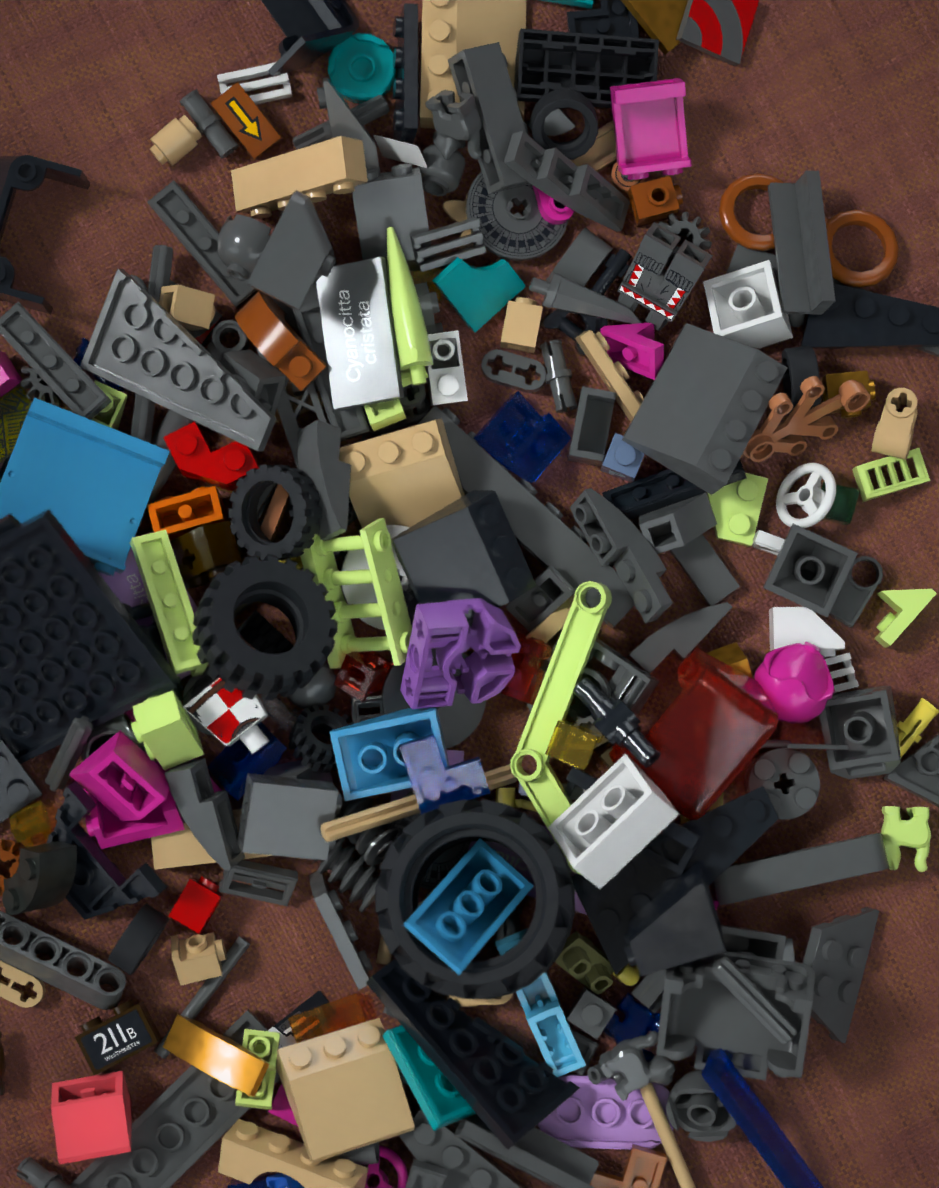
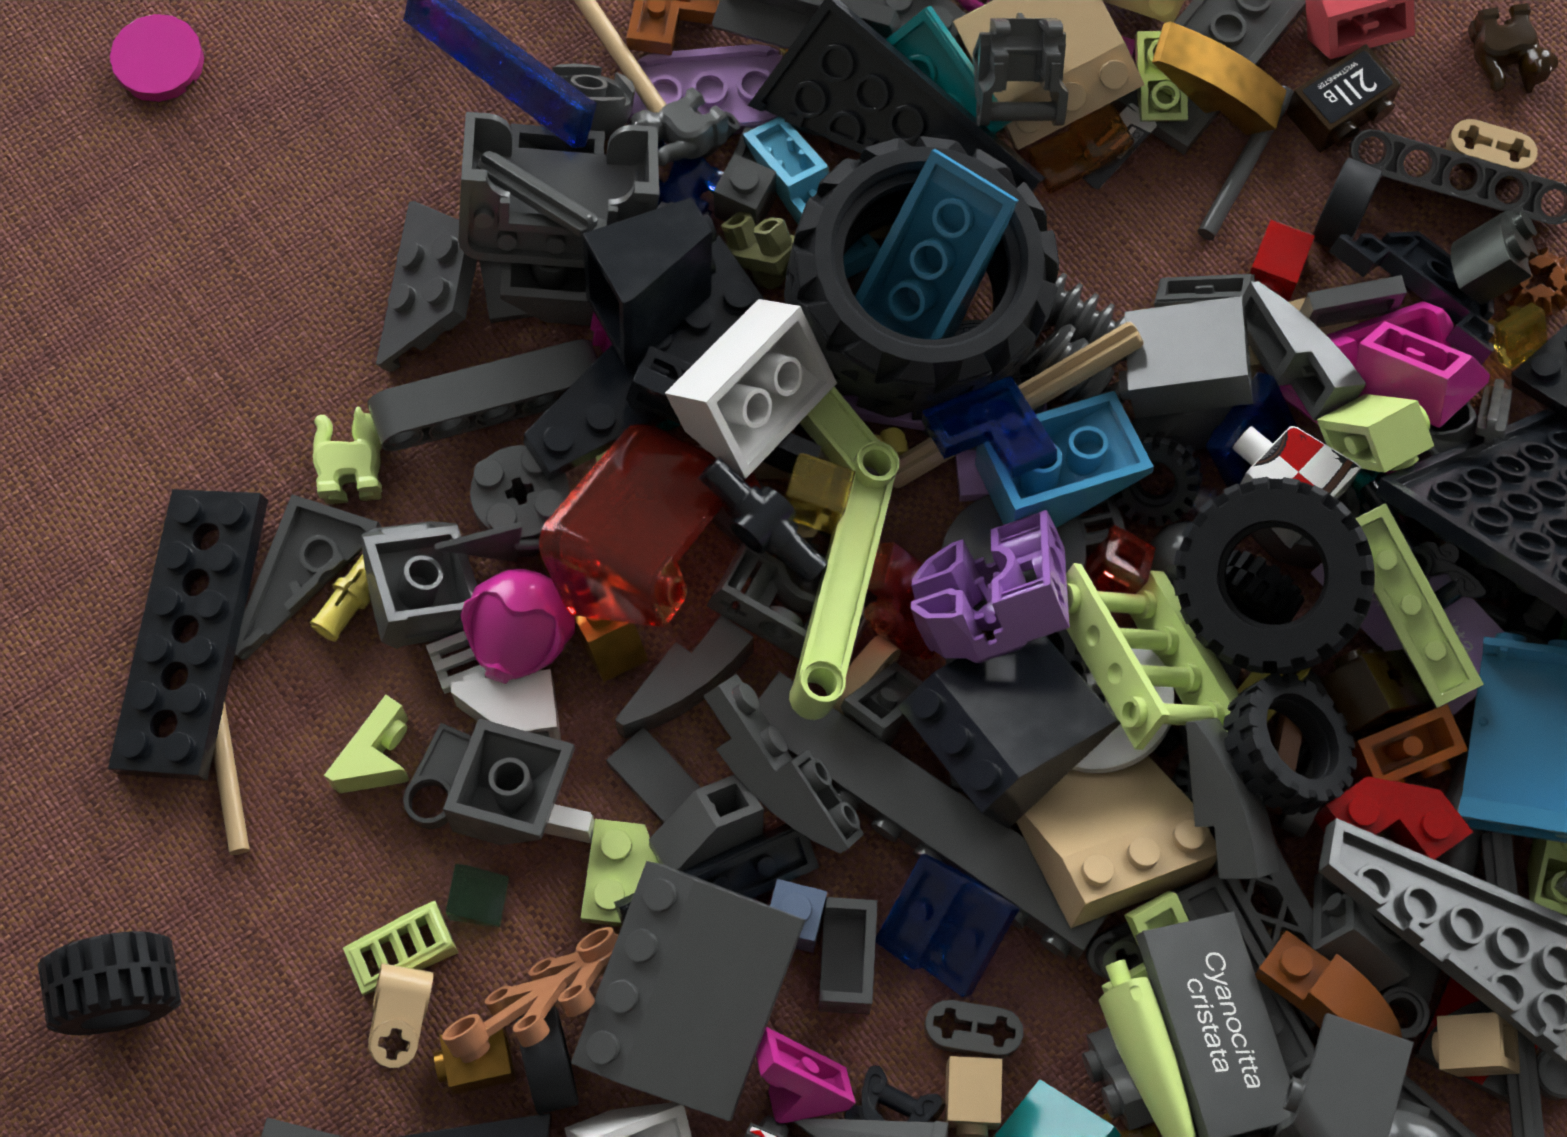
camera: 175 degrees right, 15 degrees down
(155, 849) = (1354, 301): none -> dark grey tile
(197, 957) = (1265, 195): tan brick -> none
(341, 930) = (1090, 250): dark grey wing -> none
(375, 1072) = (1020, 52): none -> dark grey piece
(446, 376) = (1073, 1005): white slope -> none
(558, 376) = (906, 1028): dark grey pin -> none
(611, 373) = (828, 1034): tan tile -> none
(810, 496) = (511, 893): white piece -> none

